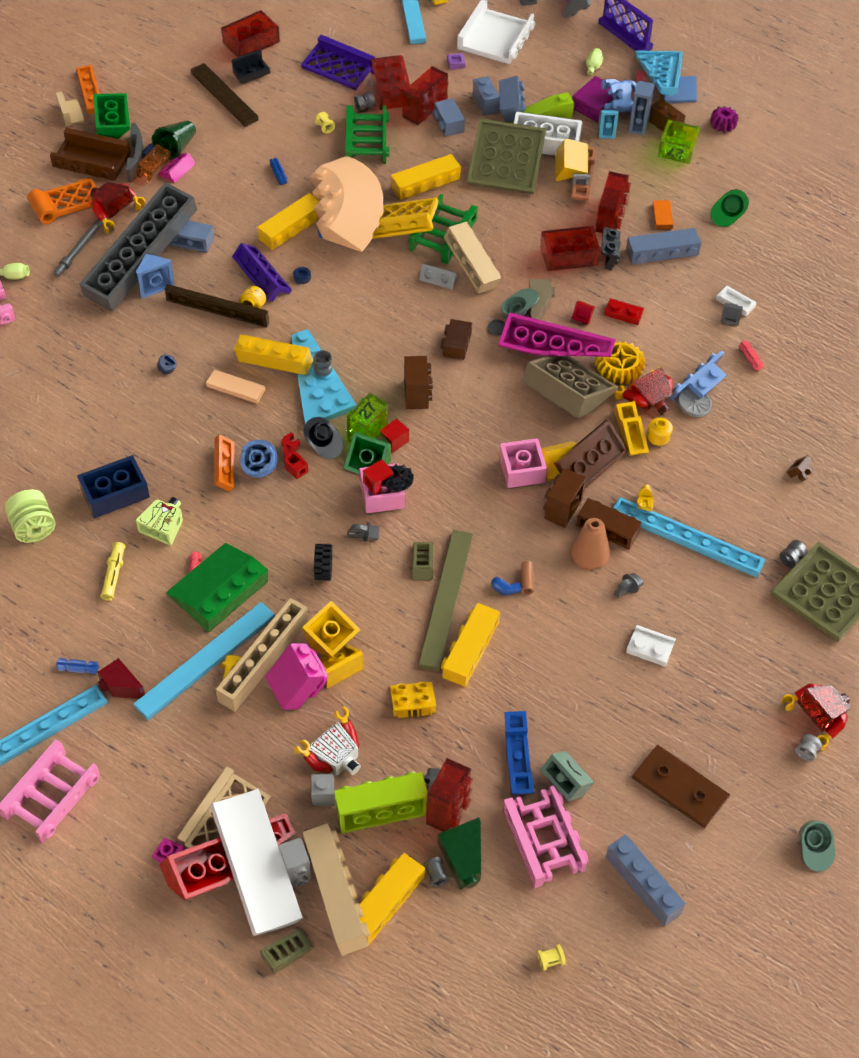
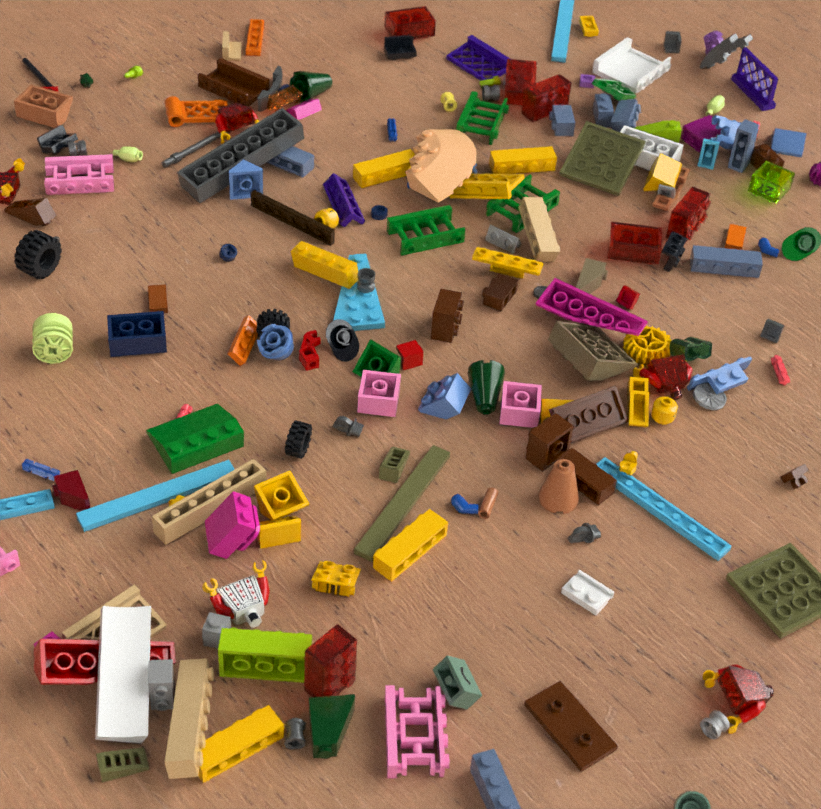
camera: 15 degrees right, 10 degrees down
(111, 114) = (262, 55): green slope -> none
(114, 564) = (117, 387): light yellow pin -> none
(115, 438) = (157, 298): none -> dark orange tile
(161, 520) = (168, 372): yellowish green torso -> none
(224, 95) = (369, 64): dark brown tile -> none
(235, 386) = (282, 284): light nougat tile -> none
(245, 434) = (272, 317): none -> black tyre
(350, 273) = (422, 219): none -> green fence
(362, 86) = (490, 82): none -> lime arm
(367, 417) = (389, 330): clear neon green brick -> none
(375, 475) = (374, 374): red panel -> none
(397, 484) = (390, 388): black gear -> none
(446, 474) = (445, 397): none -> medium blue slope
(454, 305) = (506, 263): none -> yellow bracket
(482, 451) = (486, 384): none -> dark green cone
(487, 66) = (614, 88): none -> green wing
(518, 753) = (418, 650): blue slope -> none
(520, 302) = (571, 274): sand green cap -> none
(624, 311) = (668, 306): red plate -> none
(662, 69) = (776, 122): medium azure wing -> none
(663, 356) = (691, 348): none -> clear green brick
(696, 220) = (766, 248): none -> blue arm
(730, 295) = (777, 315): white tile -> none
(791, 555) = (760, 547): flat silver wheel -> none

